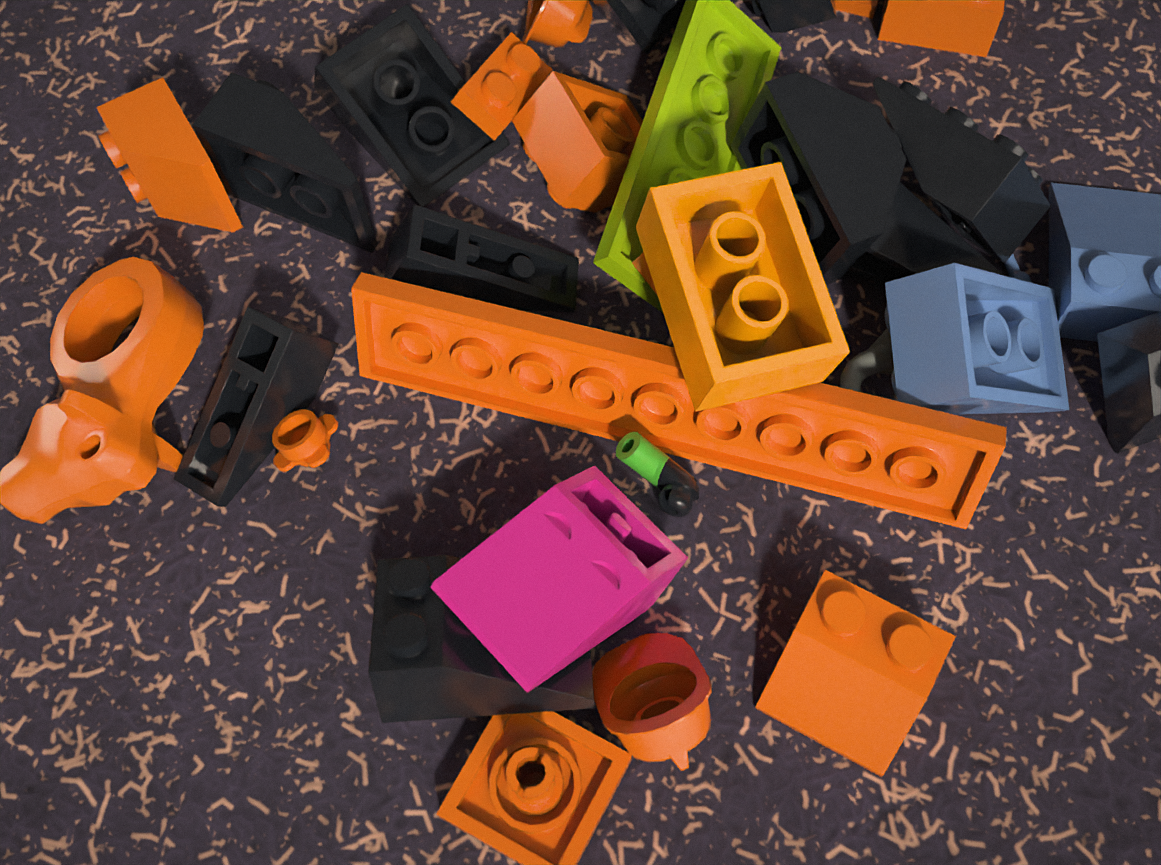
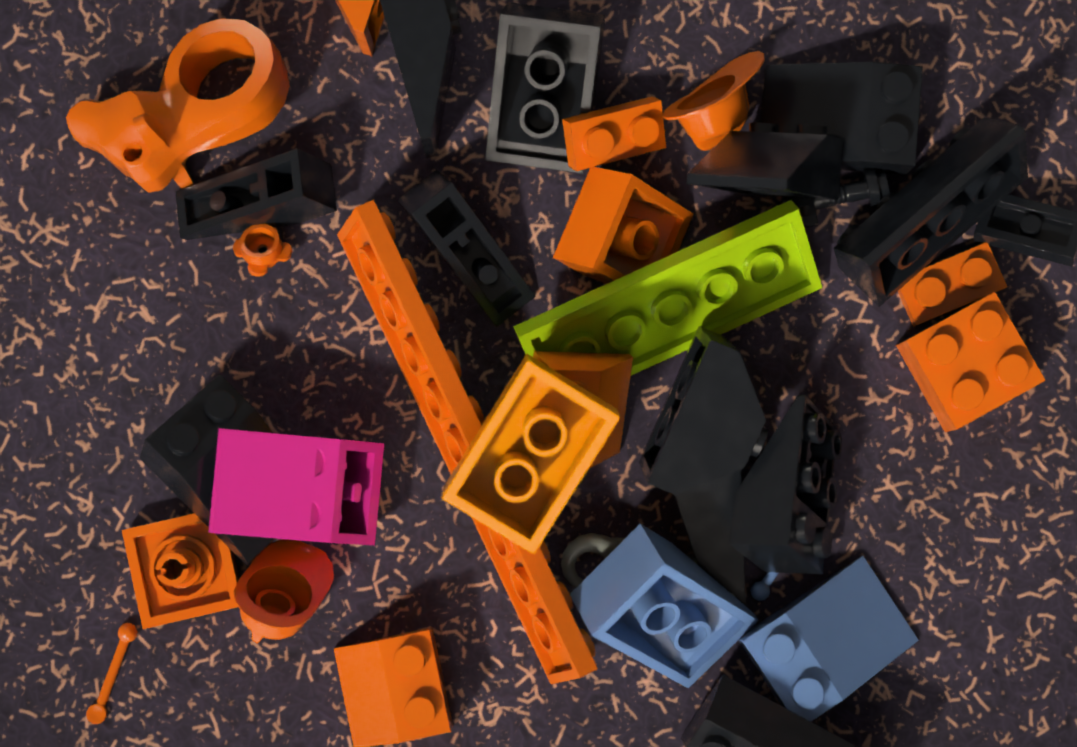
camera: 45 degrees right, 20 degrees up
(677, 485) = (428, 476): arm -> none

